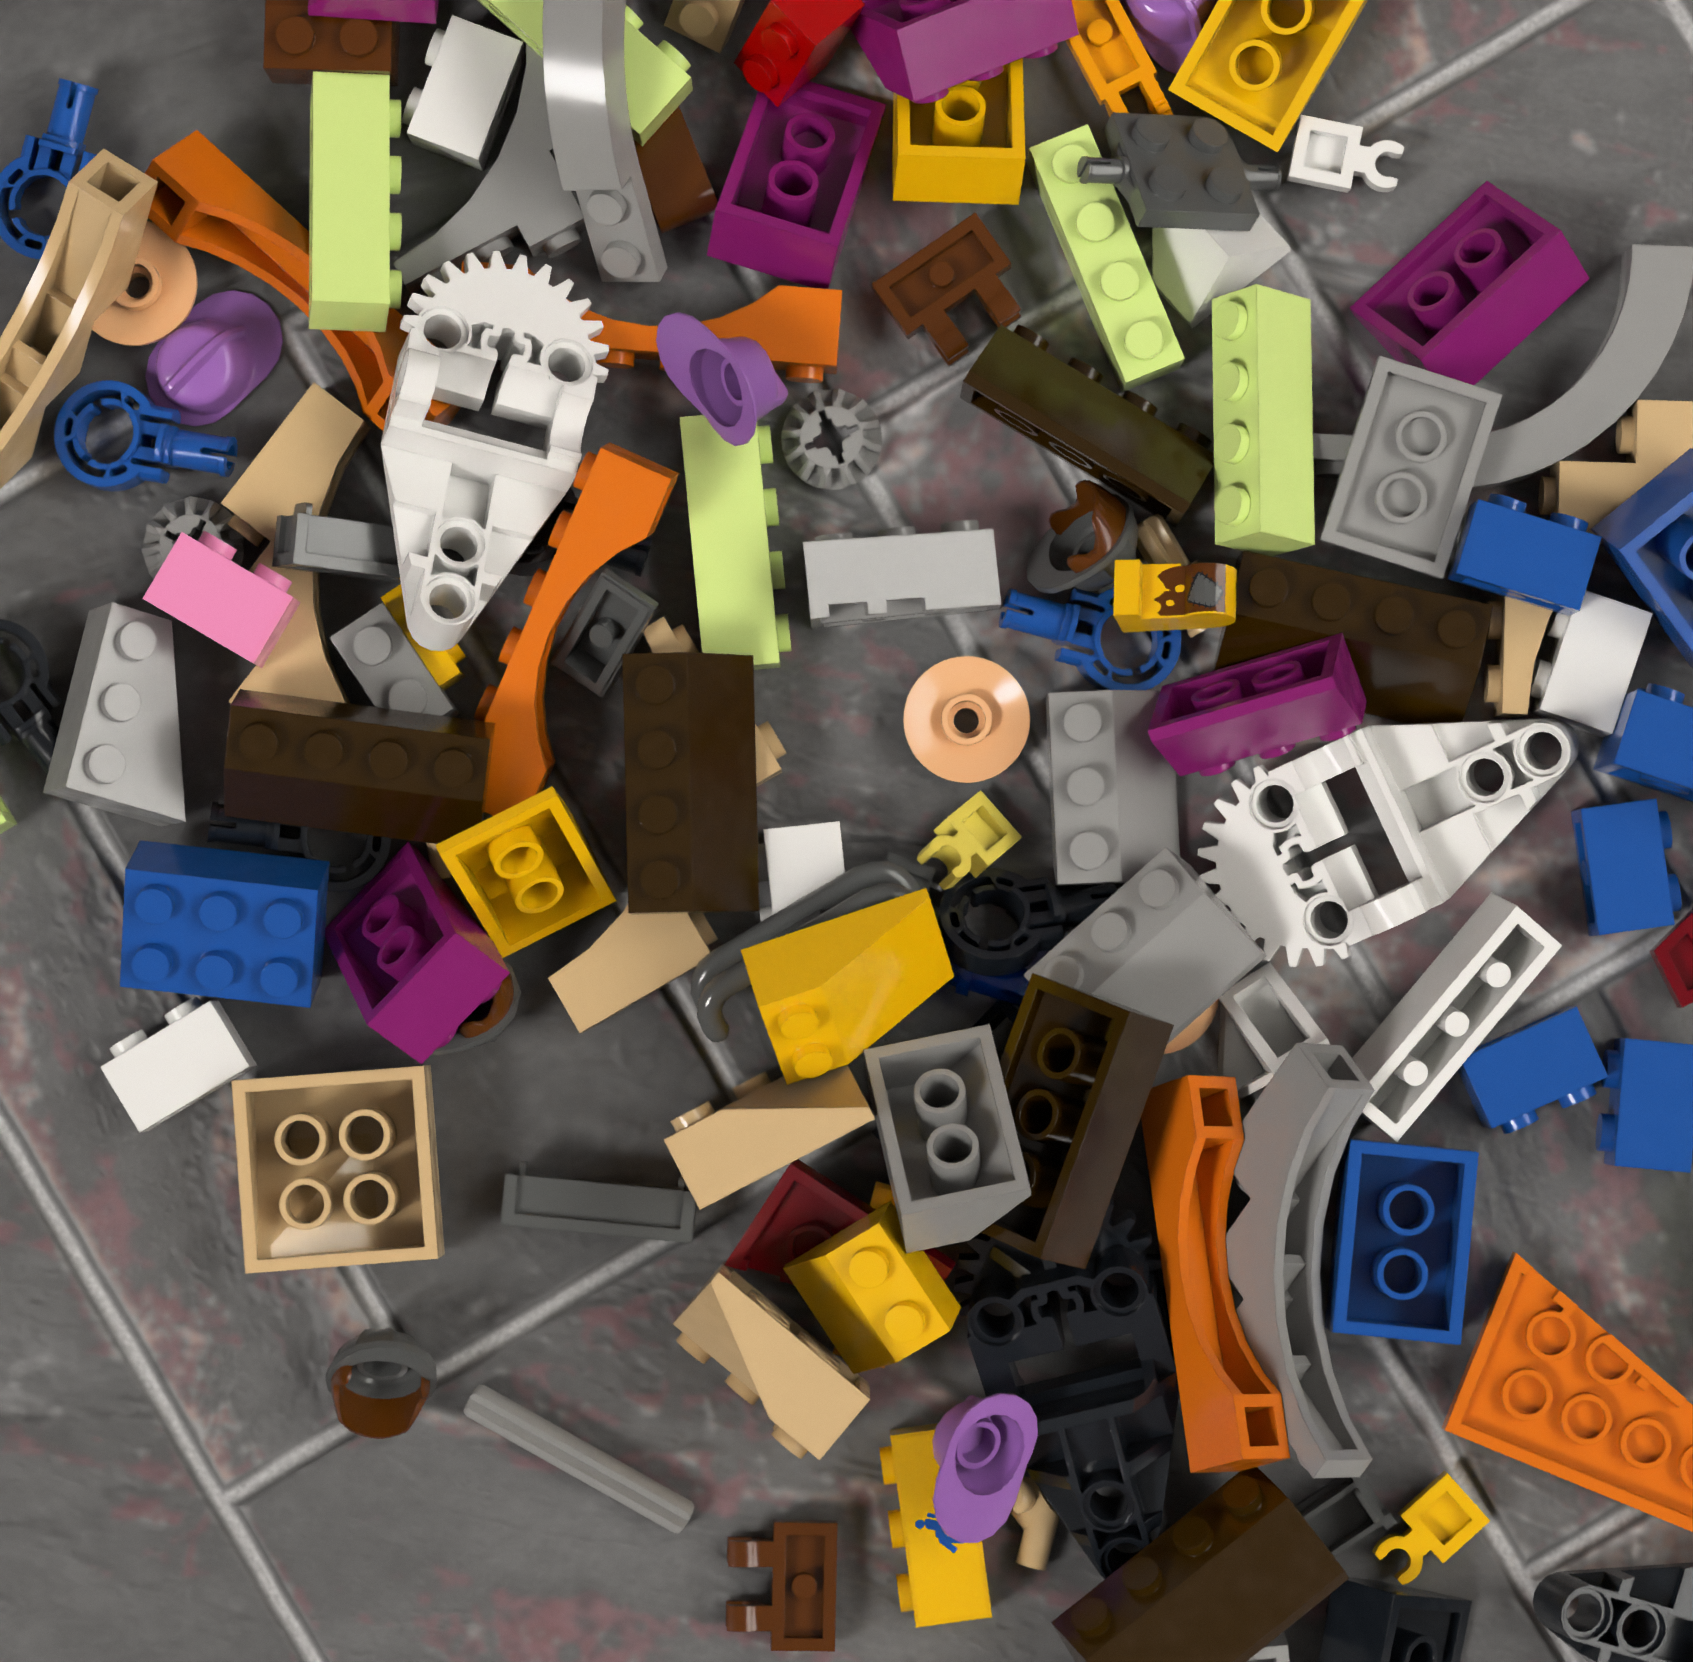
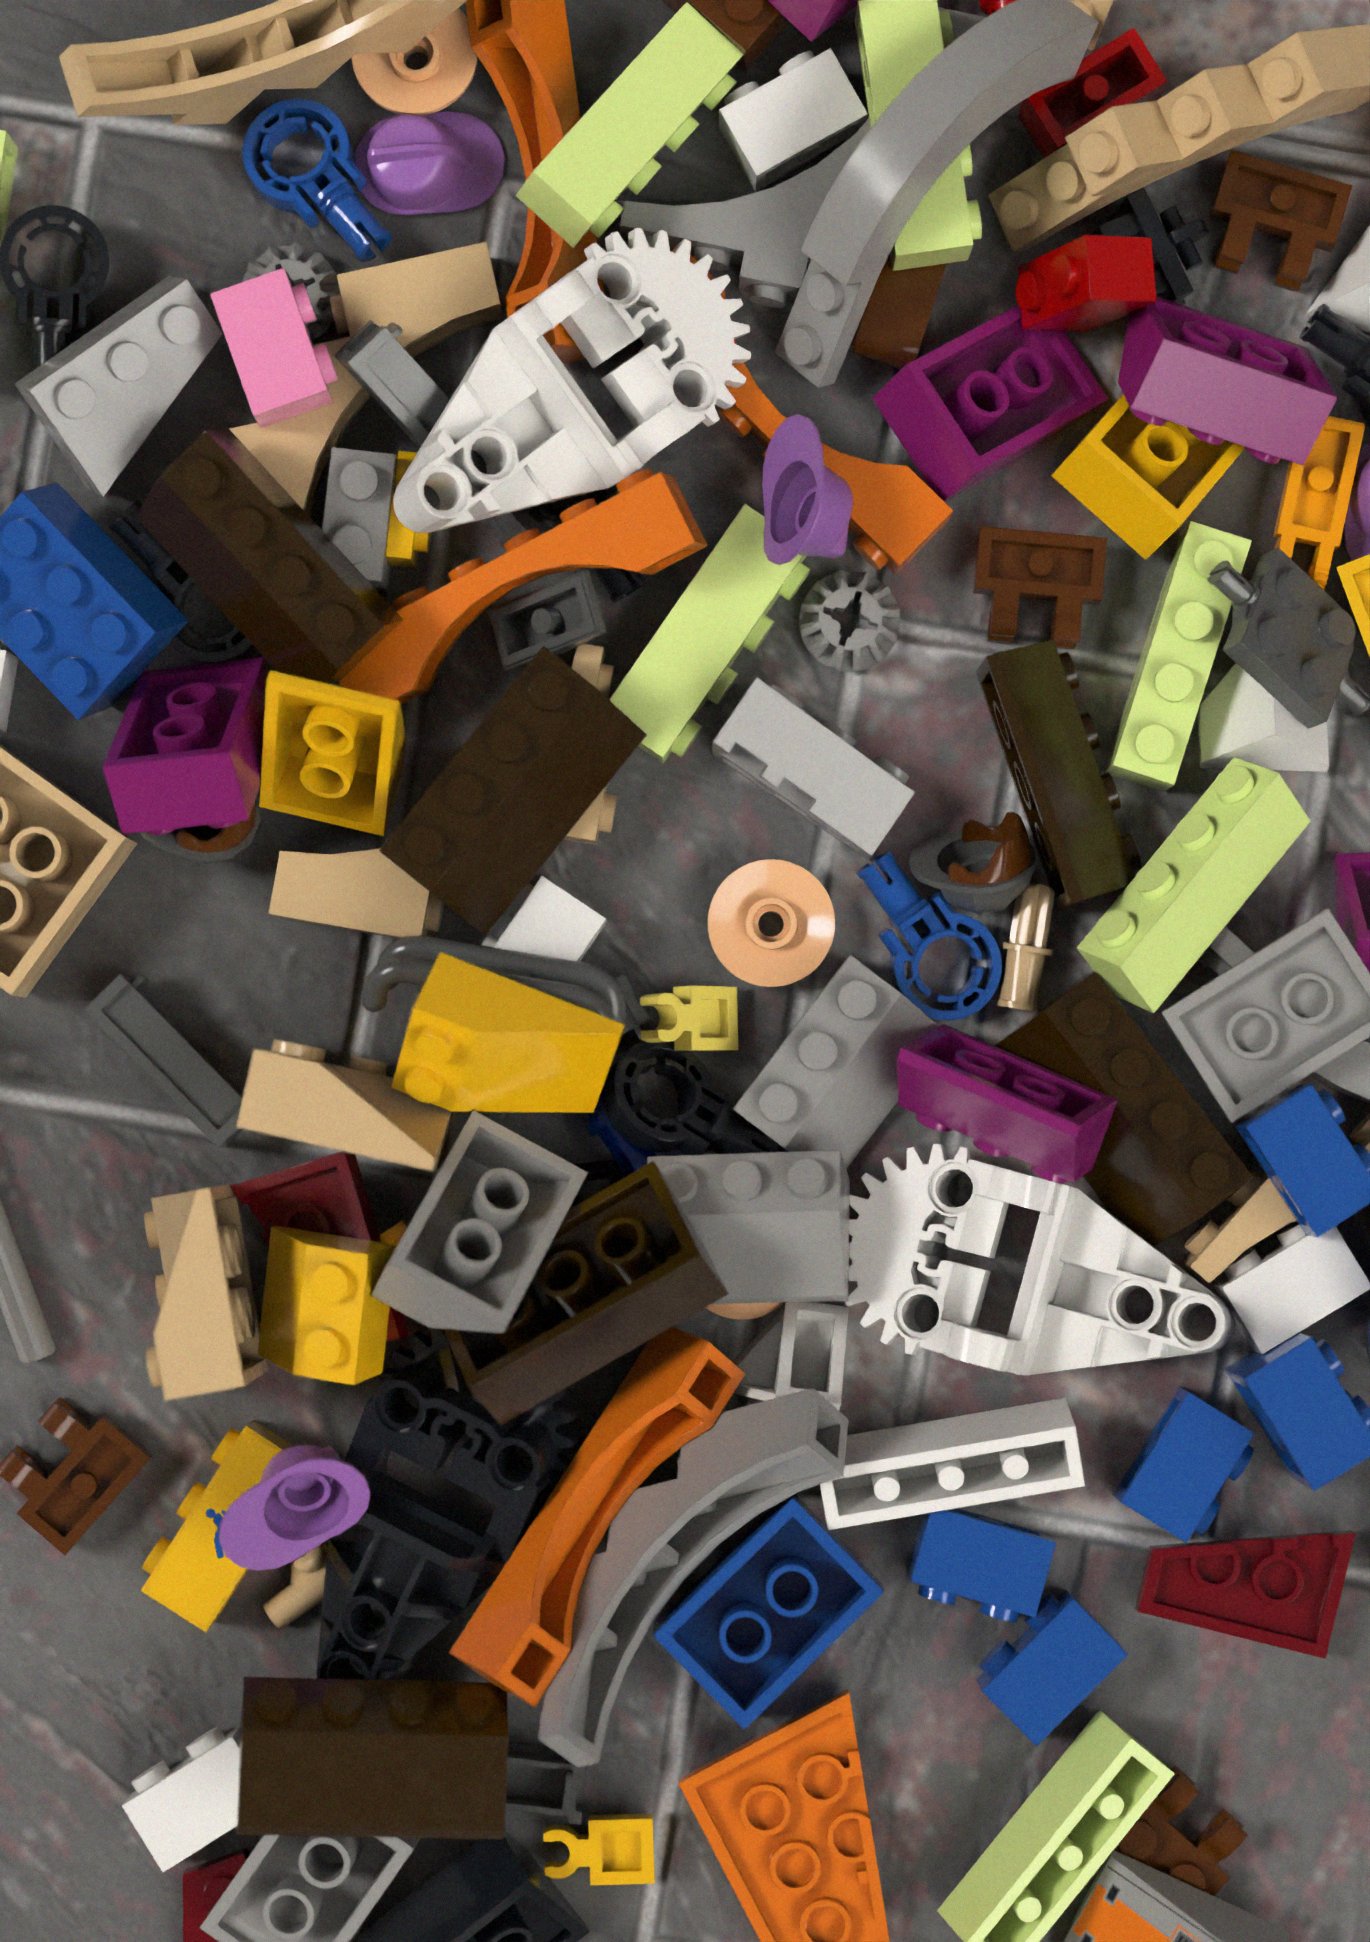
camera: 40 degrees right, 0 degrees up
(1173, 596) = (1010, 960): yellow leg -> none

